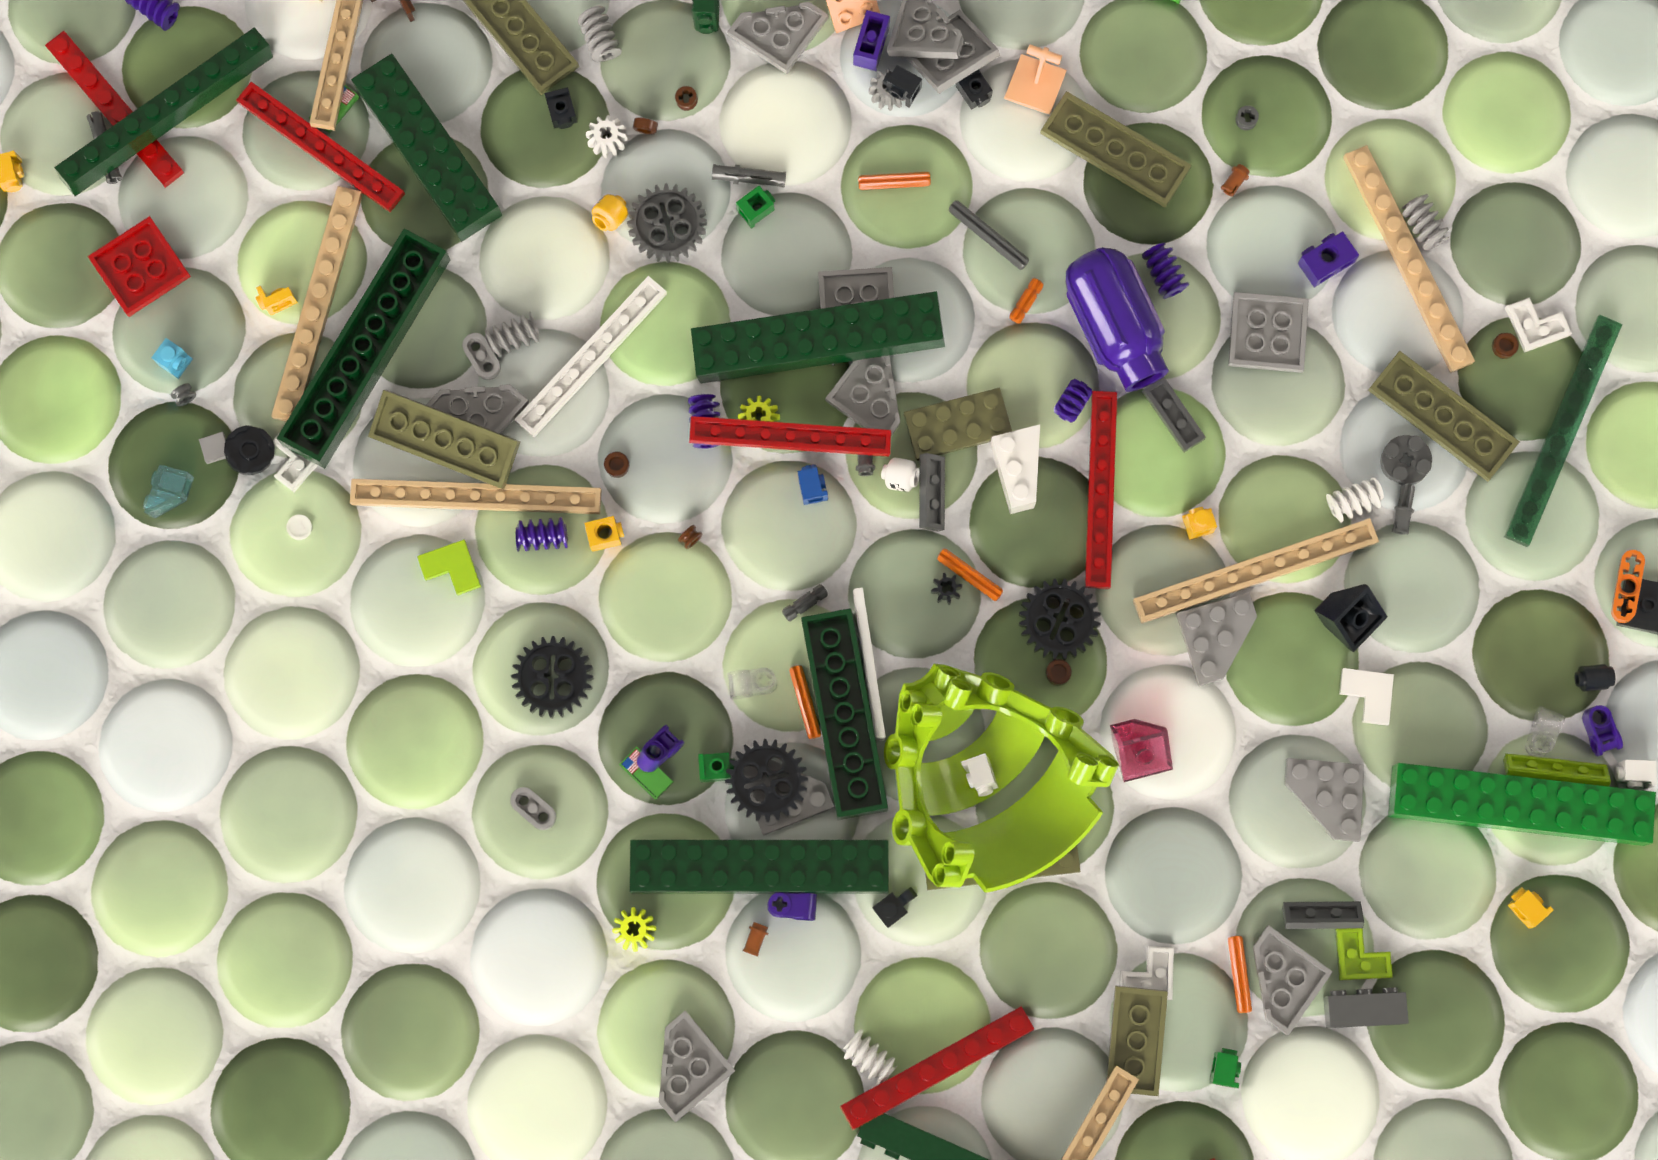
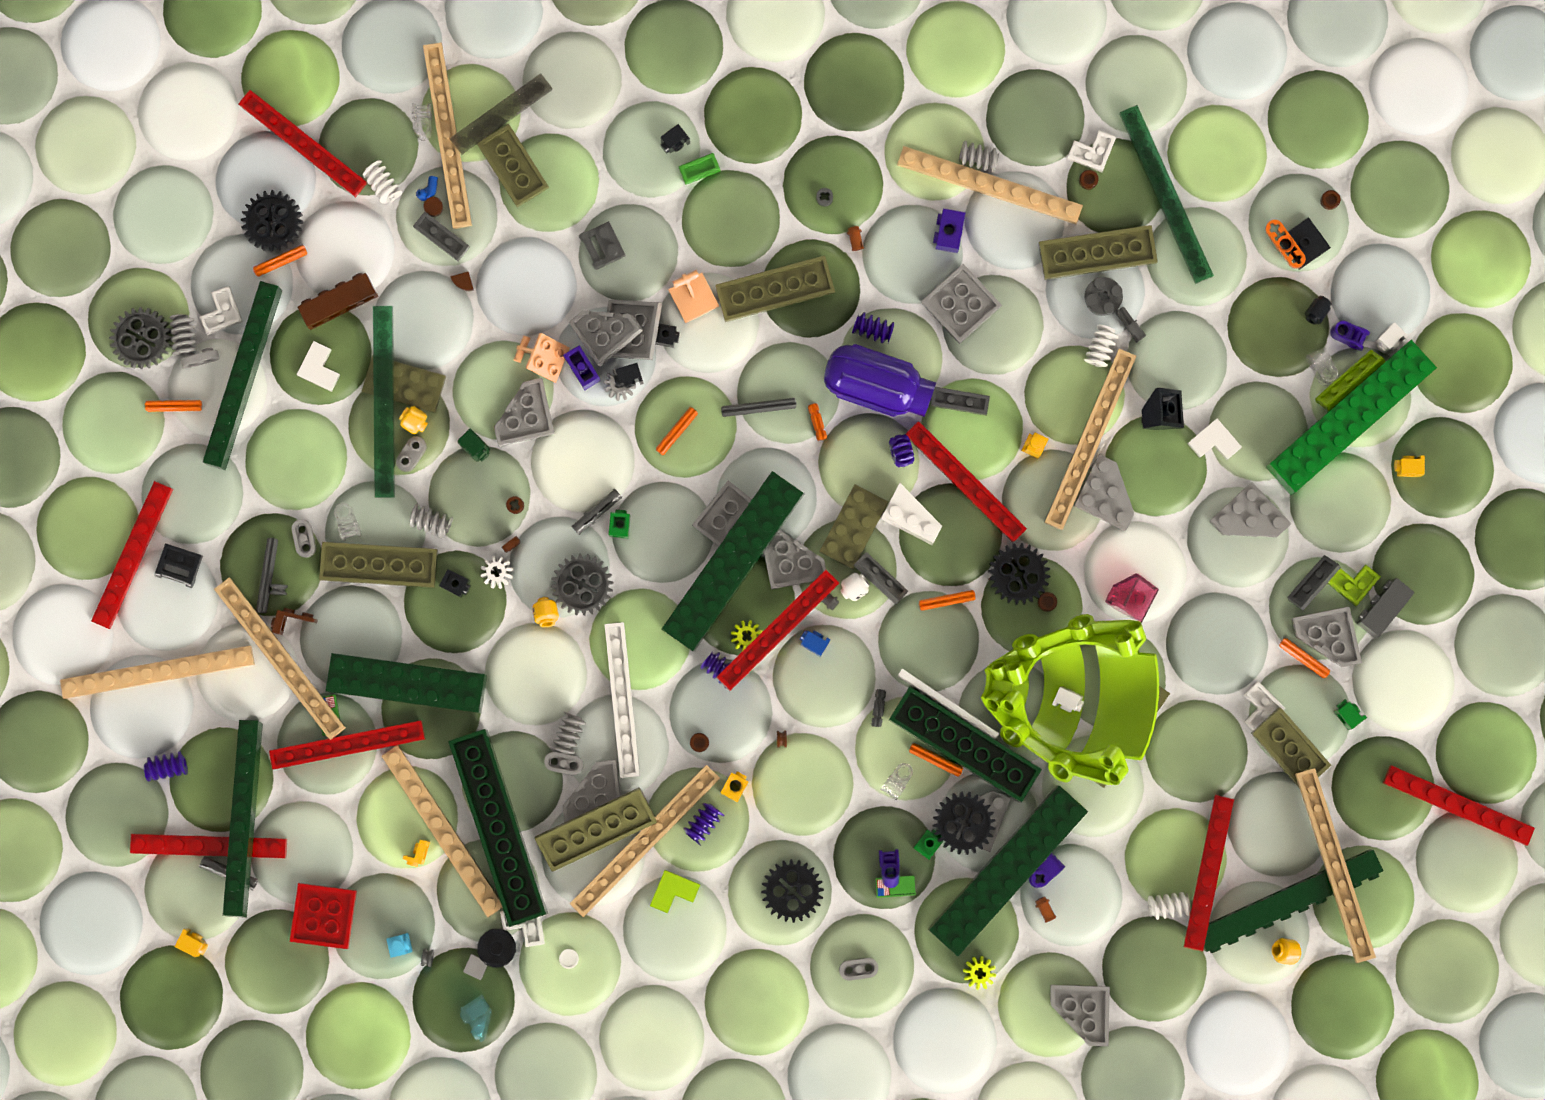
camera: 50 degrees left, 5 degrees up
(892, 908) = (1096, 817): black plate -> none
(944, 582) = (946, 616): black gear -> none

